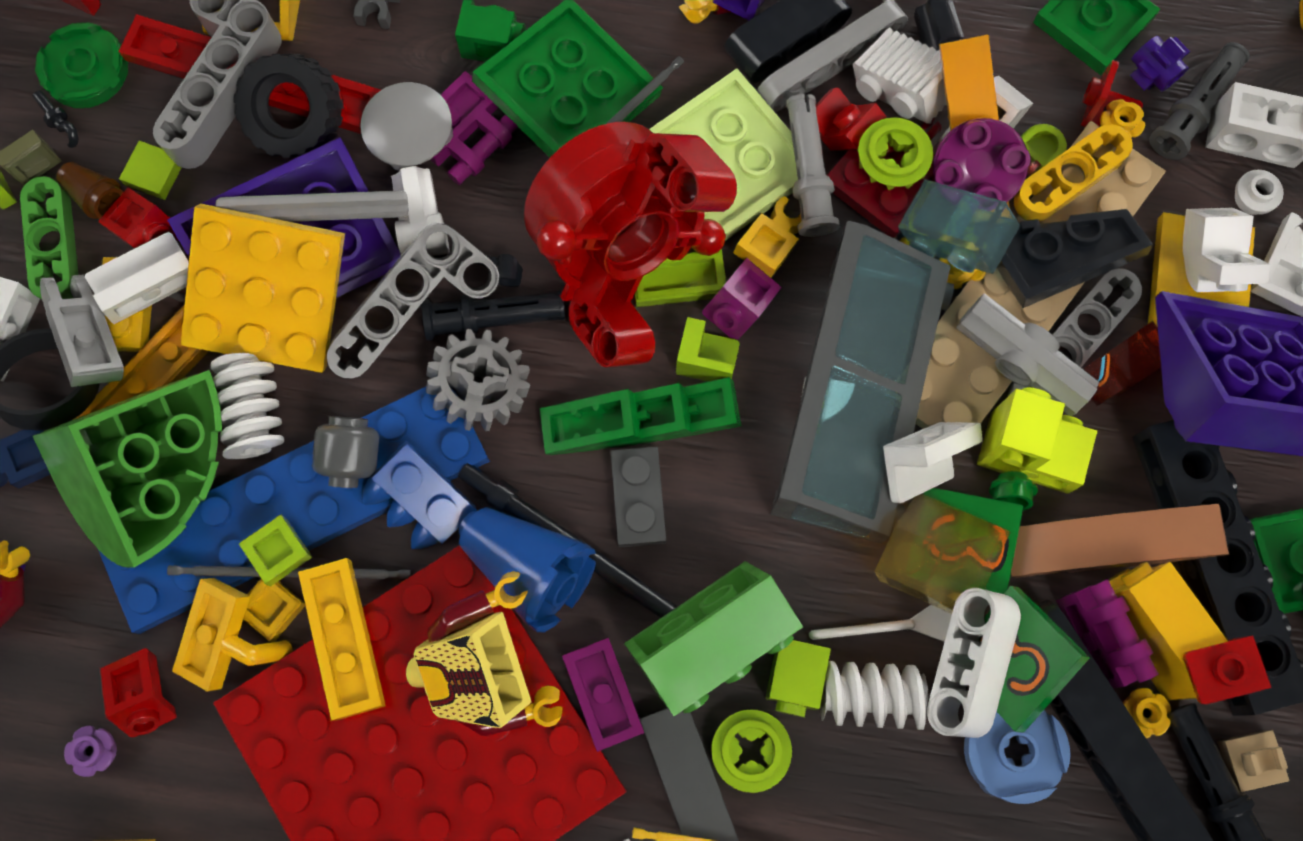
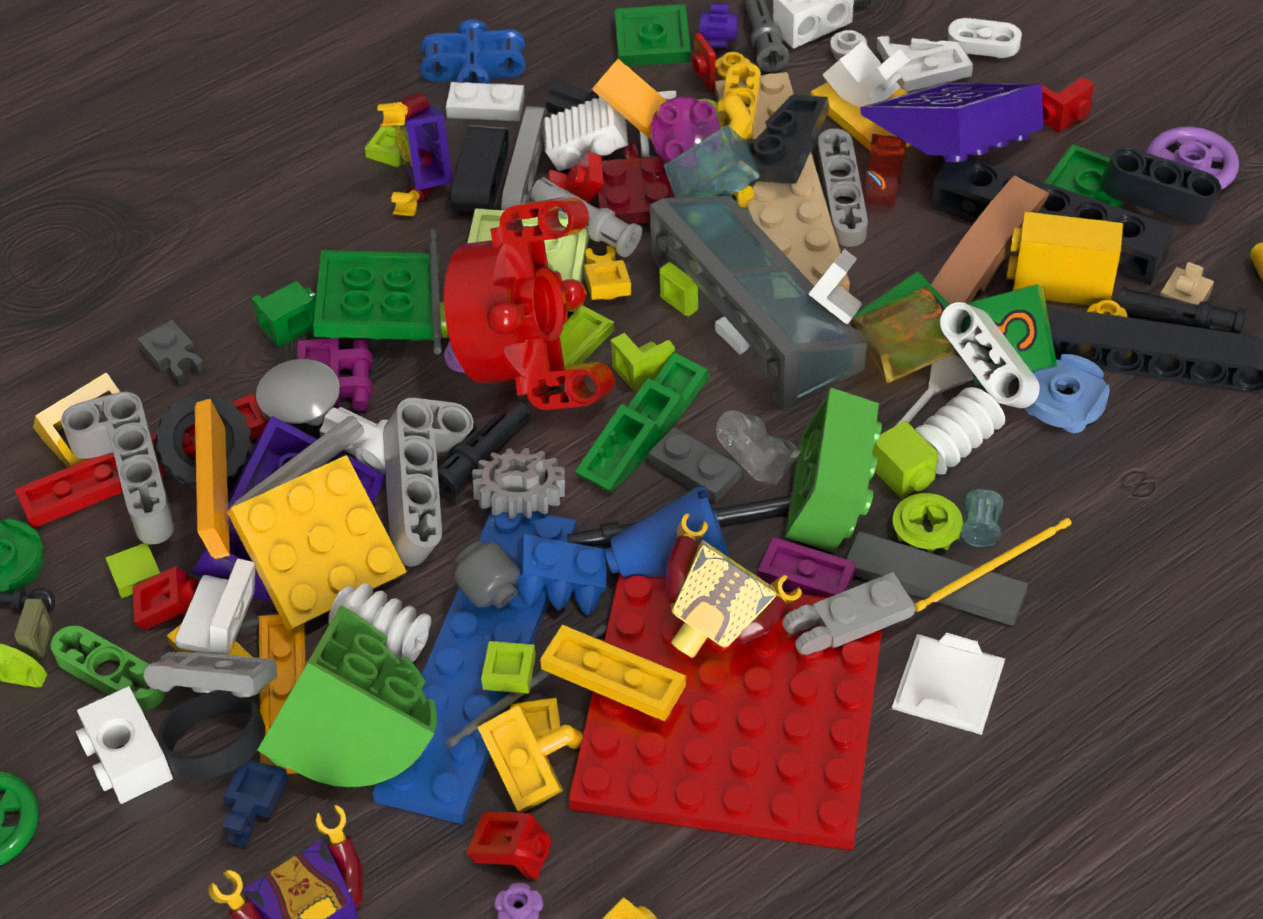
camera: 45 degrees left, 25 degrees down
(88, 188) = (105, 611): reddish brown cone -> none
(222, 159) = (211, 479): none -> light orange tile
(580, 782) = (850, 614): none -> light grey hinge
(692, 535) = (758, 453): none -> clear leg
(741, 300) = (629, 315): magenta bracket -> none
(796, 798) = (982, 518): none -> clear light blue bush
(809, 313) = (678, 289): none -> lime tile
(902, 136) = (623, 156): lime gear -> none
(1014, 488) = (900, 272): green plate -> none
(1027, 354) = (827, 200): light grey piece -> none
(1036, 439) = (885, 239): neon yellow brick -> none
(1046, 192) = (737, 113): none -> yellow arm
(1108, 634) = (1056, 293): magenta plate -> none
(1226, 670) = (1115, 231): red bracket -> none

